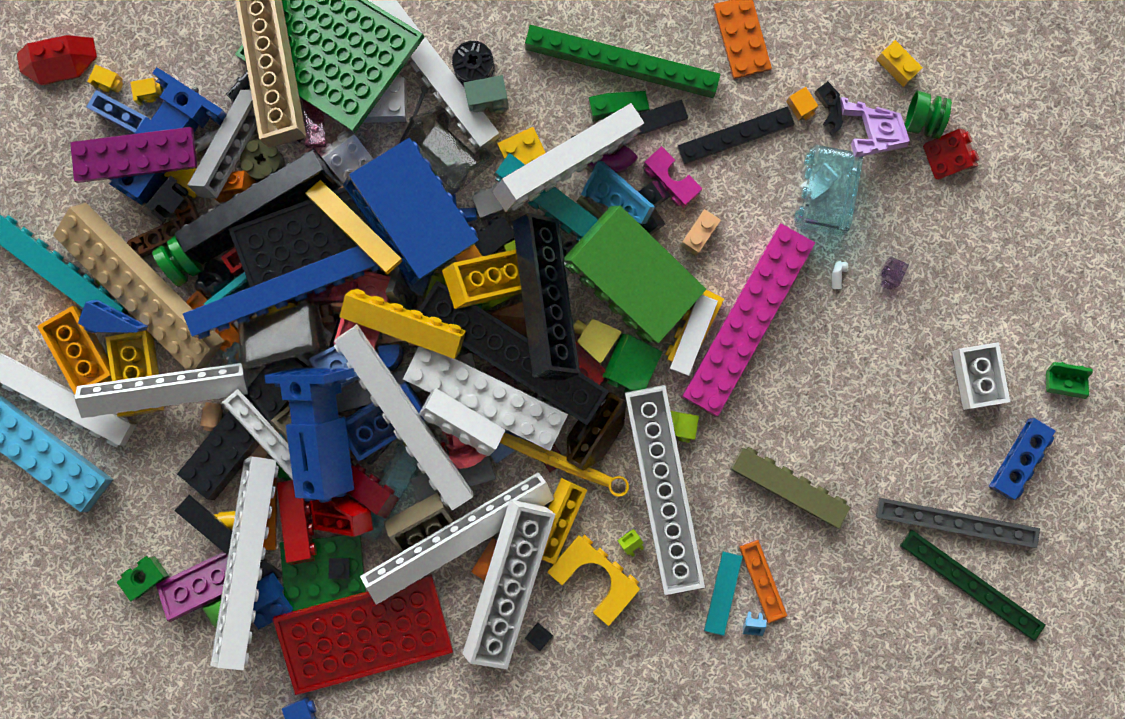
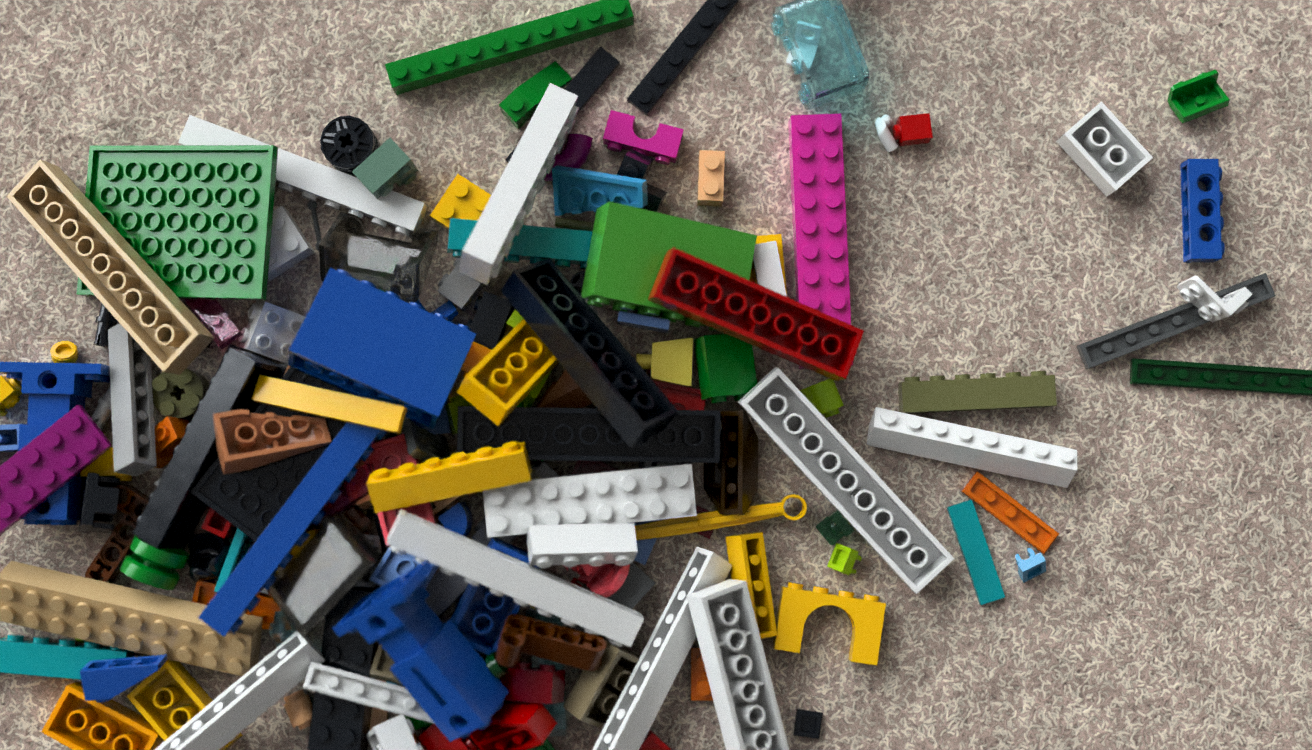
camera: 35 degrees left, 0 degrees up
(203, 87) = (64, 352): none -> yellow tile
(294, 222) = (259, 439): none -> nougat wedge
(356, 467) = (495, 668): none -> dark green tile
(400, 473) = (548, 642): none -> reddish brown beam
(595, 301) = (643, 322): none -> medium blue tile
(637, 517) = (834, 527): none -> clear green bracket
(671, 341) = (755, 315): none -> red brick
(764, 521) = (972, 447): none -> white brick
(858, 283) = (913, 129): none -> red brick
(893, 273) = (943, 95): clear purple brick -> none
(986, 525) = (1210, 305): none -> white bracket

